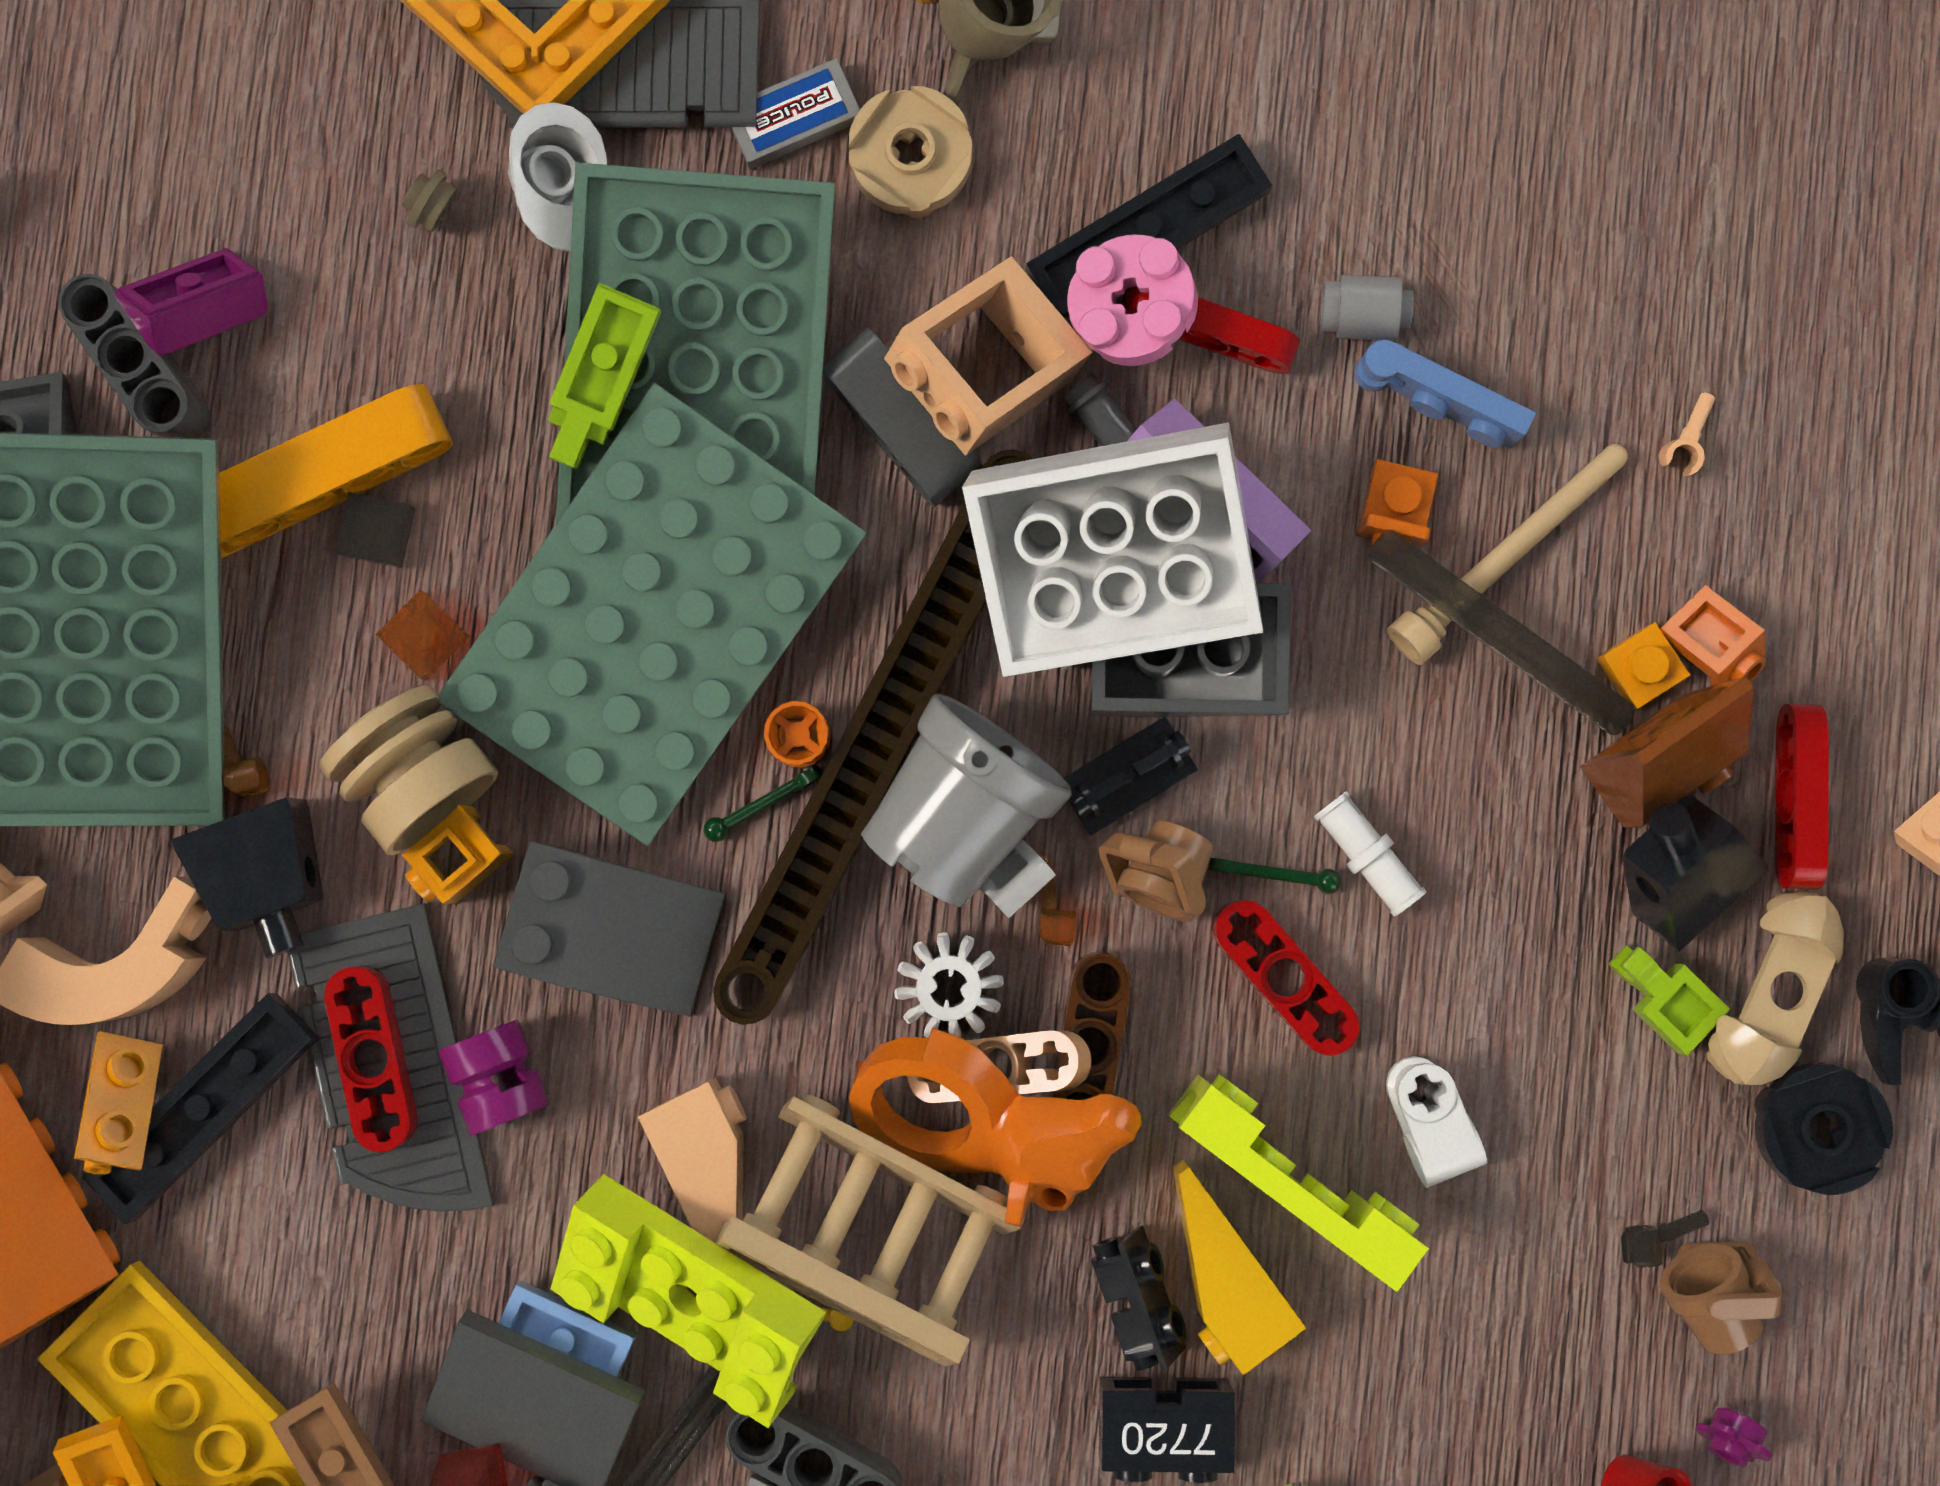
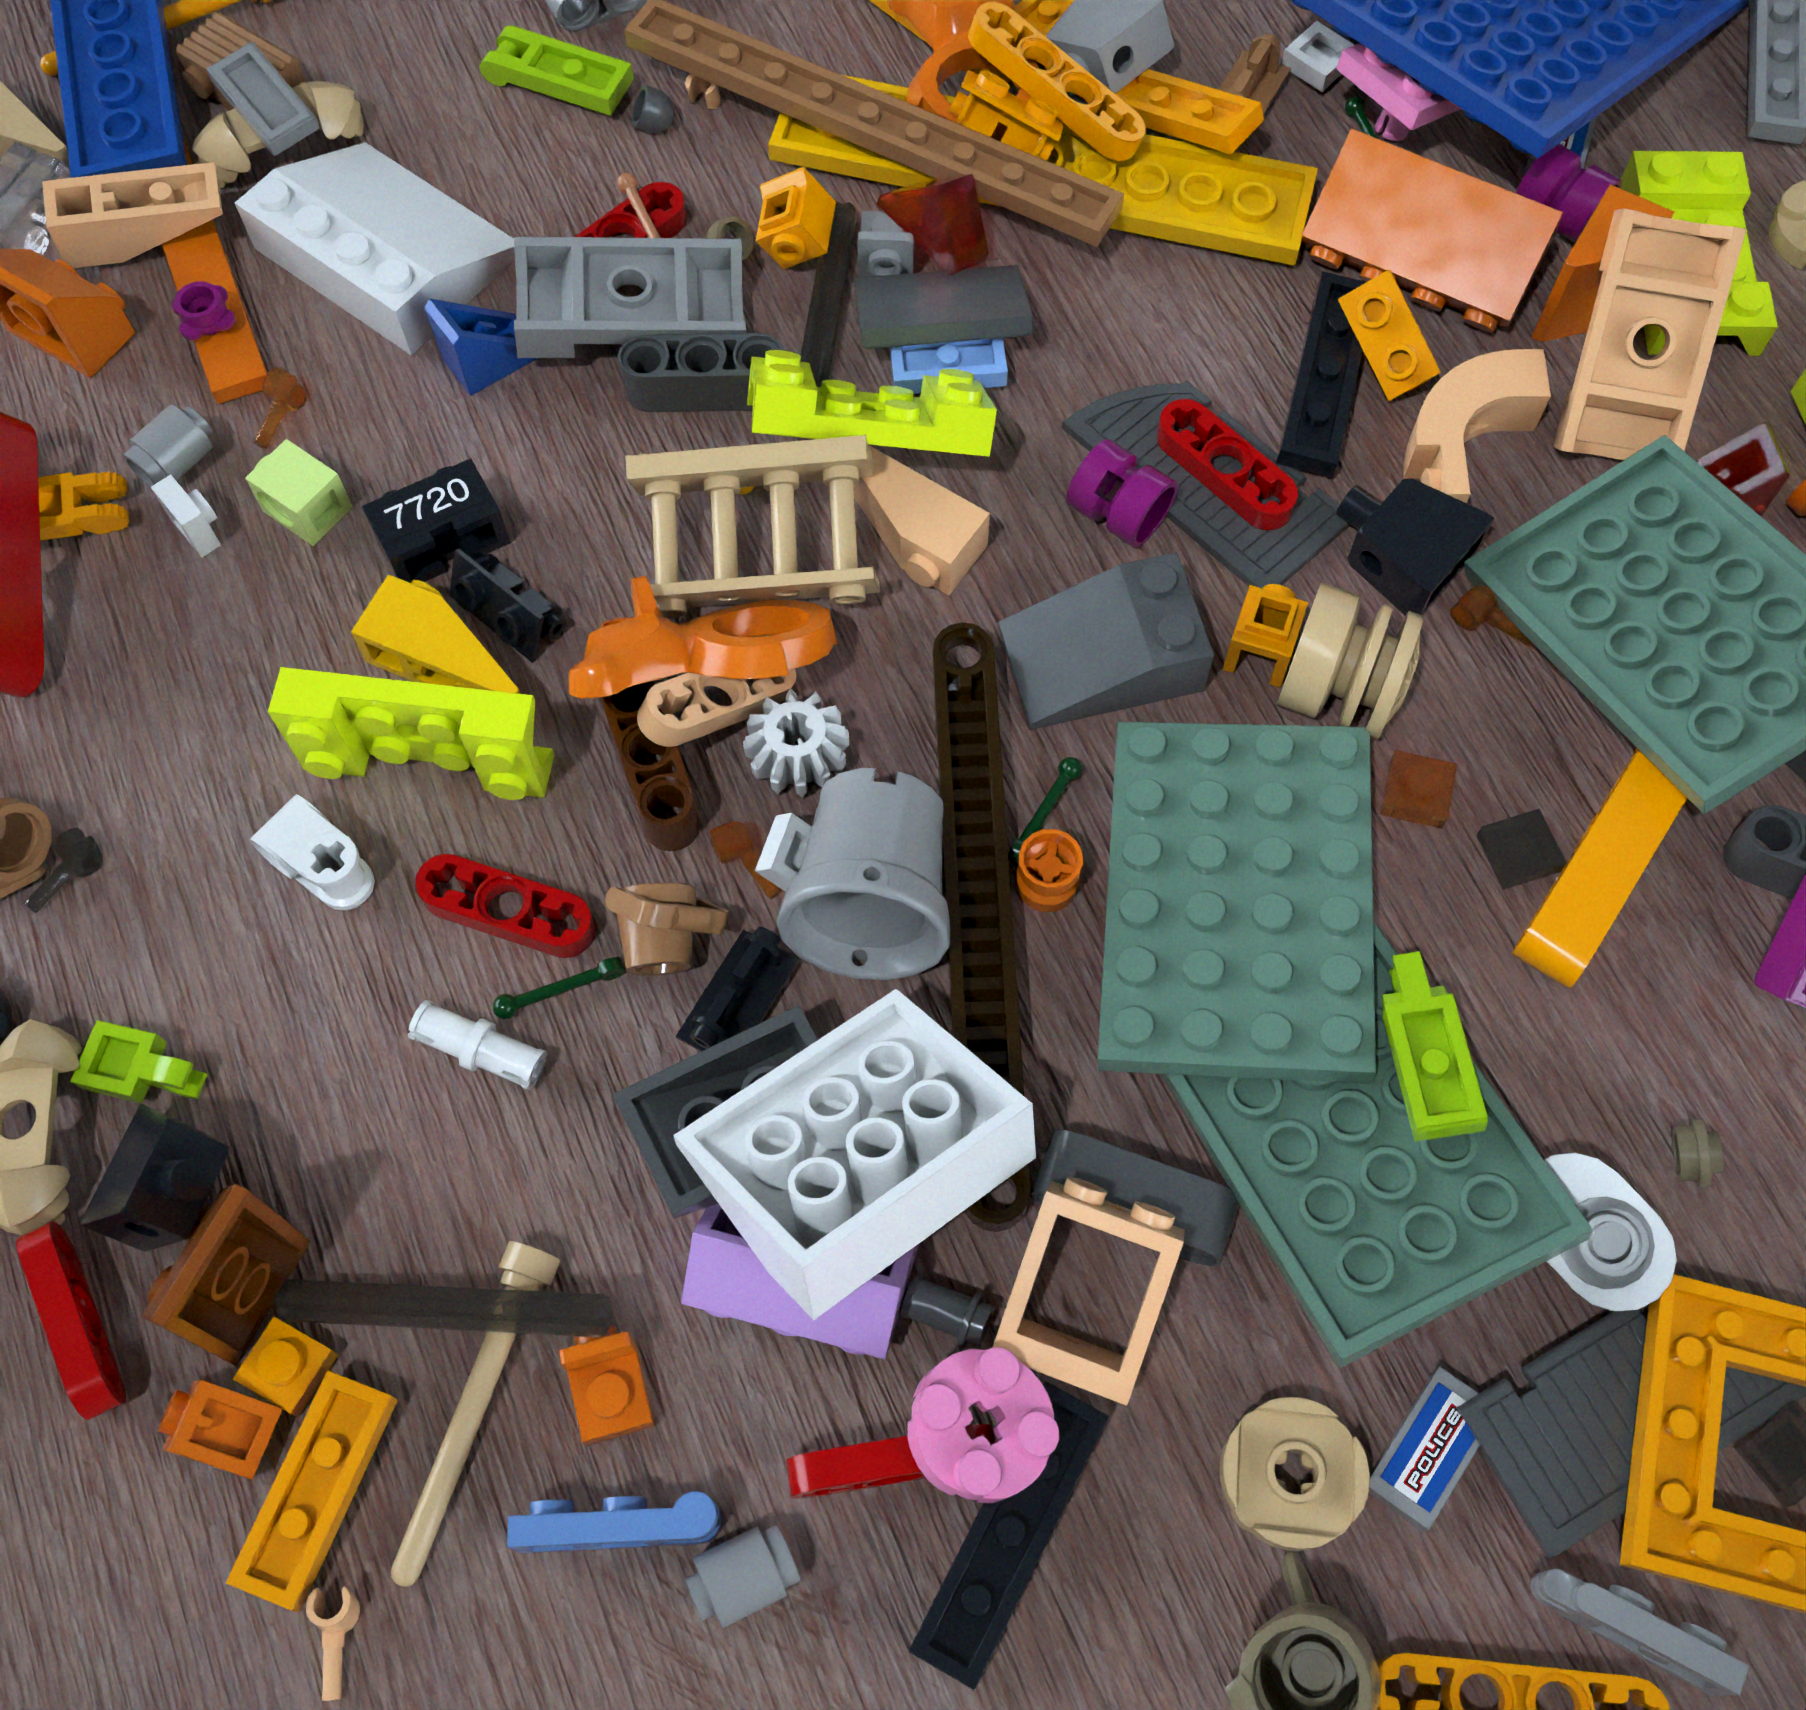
camera: 150 degrees right, 20 degrees down
(1661, 552) = (312, 1492): none -> light orange plate

